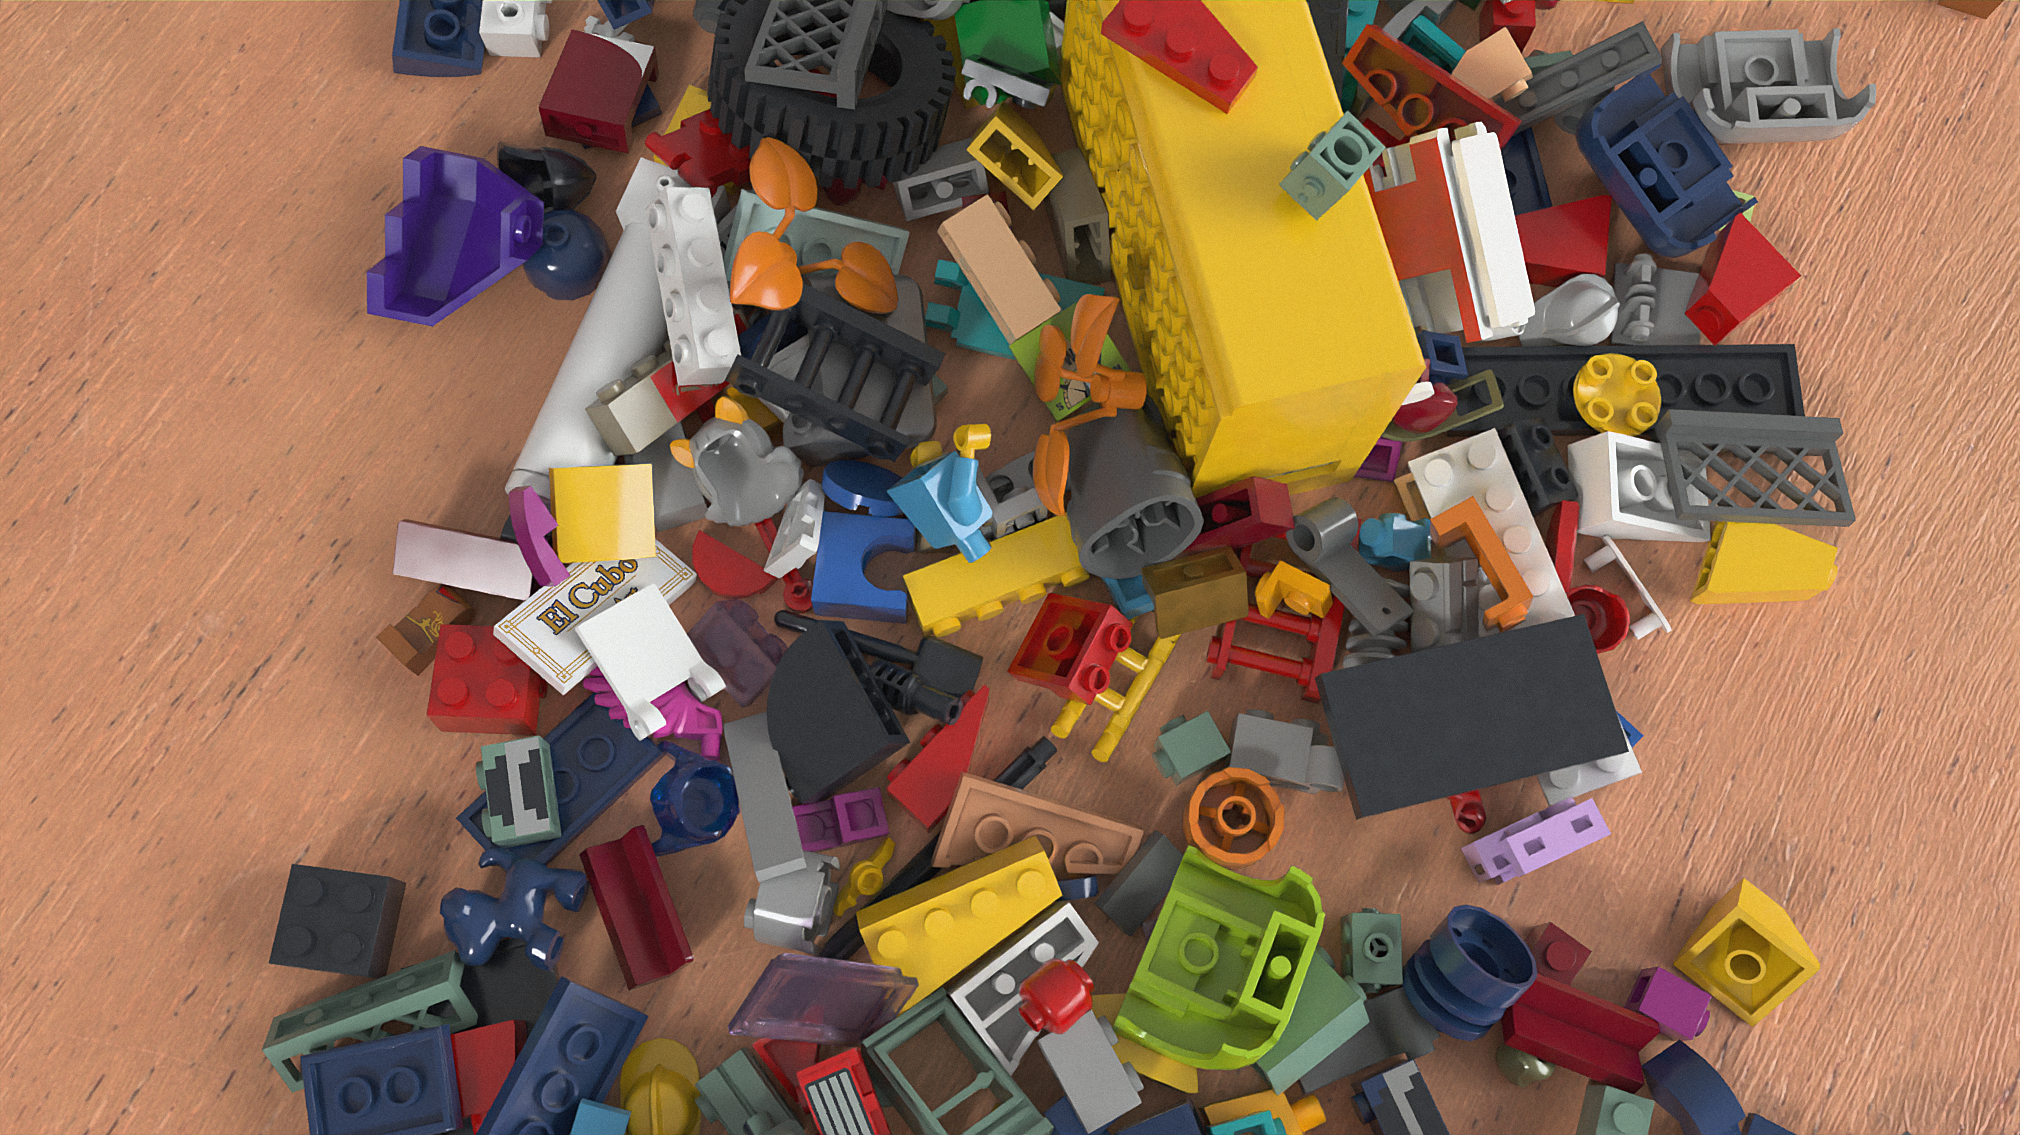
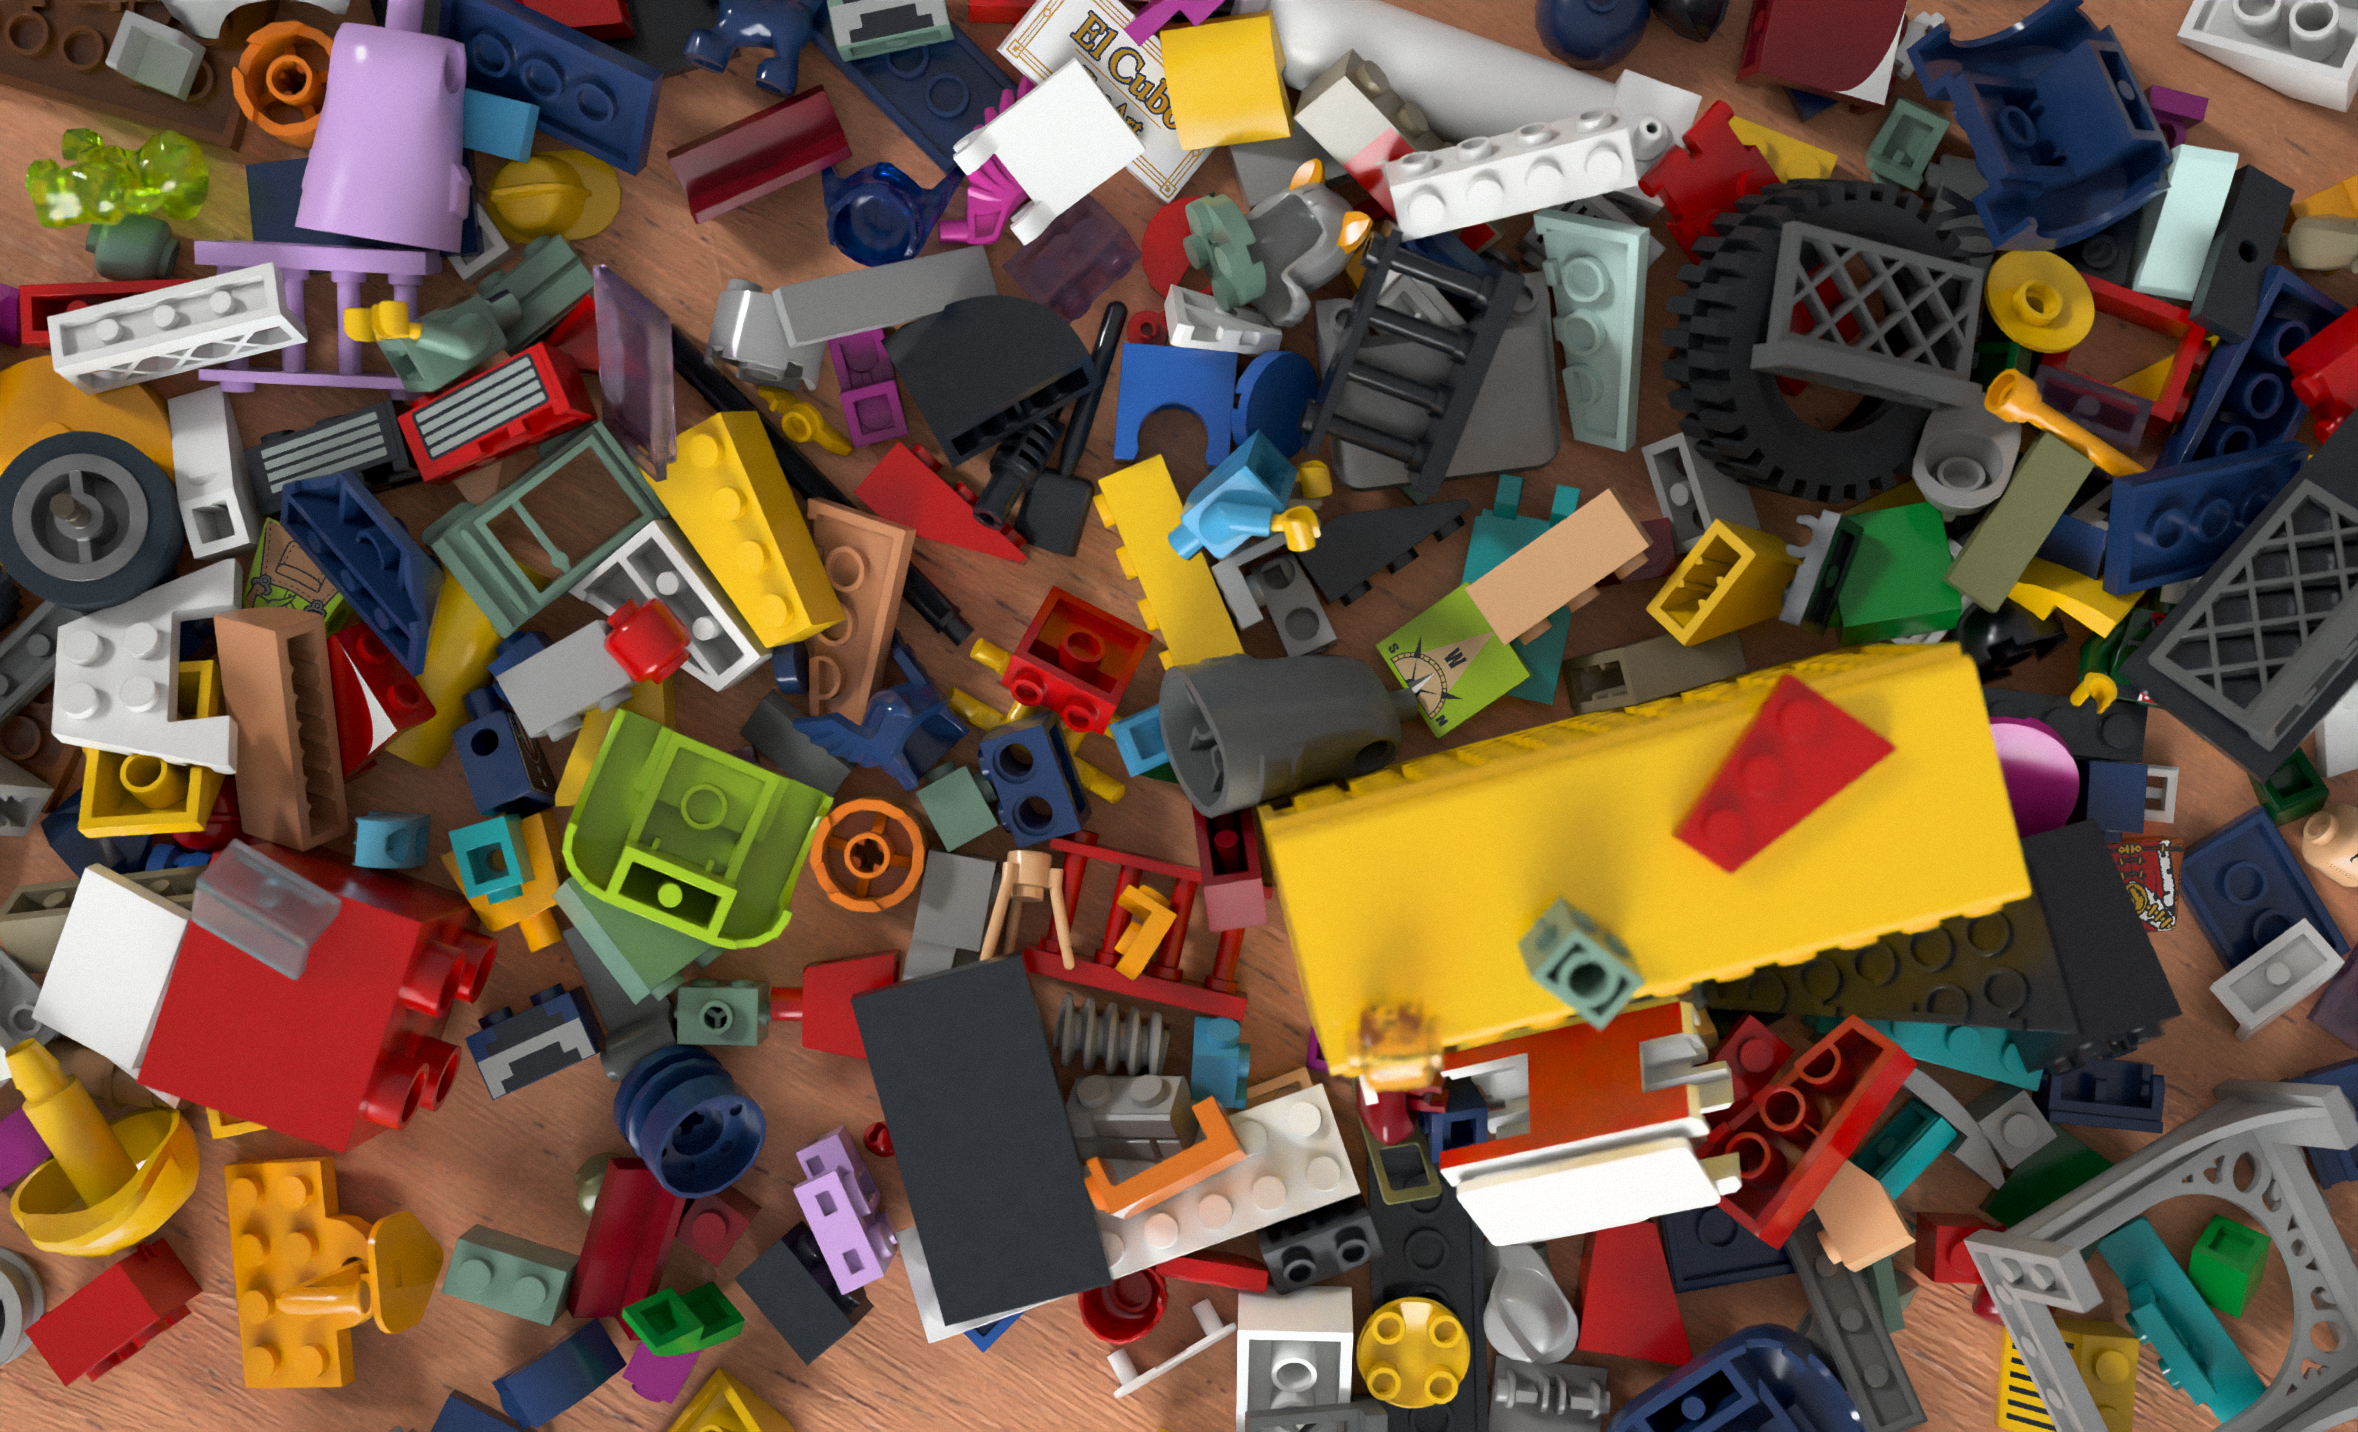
camera: 95 degrees right, 15 degrees up
(682, 39) = (1905, 144): none -> sand green bracket
(738, 520) = (1219, 247): none -> sand green plate
(767, 269) = (1502, 257): orange plant -> none
(978, 405) = (1364, 542): none -> black slope
(1110, 388) = (1383, 699): orange plant -> none
(1128, 792) = (902, 728): none -> dark blue helmet
(1167, 674) = (1048, 777): none -> dark blue brick
(1196, 591) = (1140, 811): pearl gold panel -> none
(1250, 691) = (1025, 880): none -> light nougat plant
(1323, 543) = (1193, 973): dark grey door -> none
(1360, 849) = (825, 999): none -> red torso
(1403, 305) = (1396, 1045): none -> clear yellow head
(1605, 882) = (801, 1295): none -> black brick
(1639, 981) = (685, 1322): none -> green slope

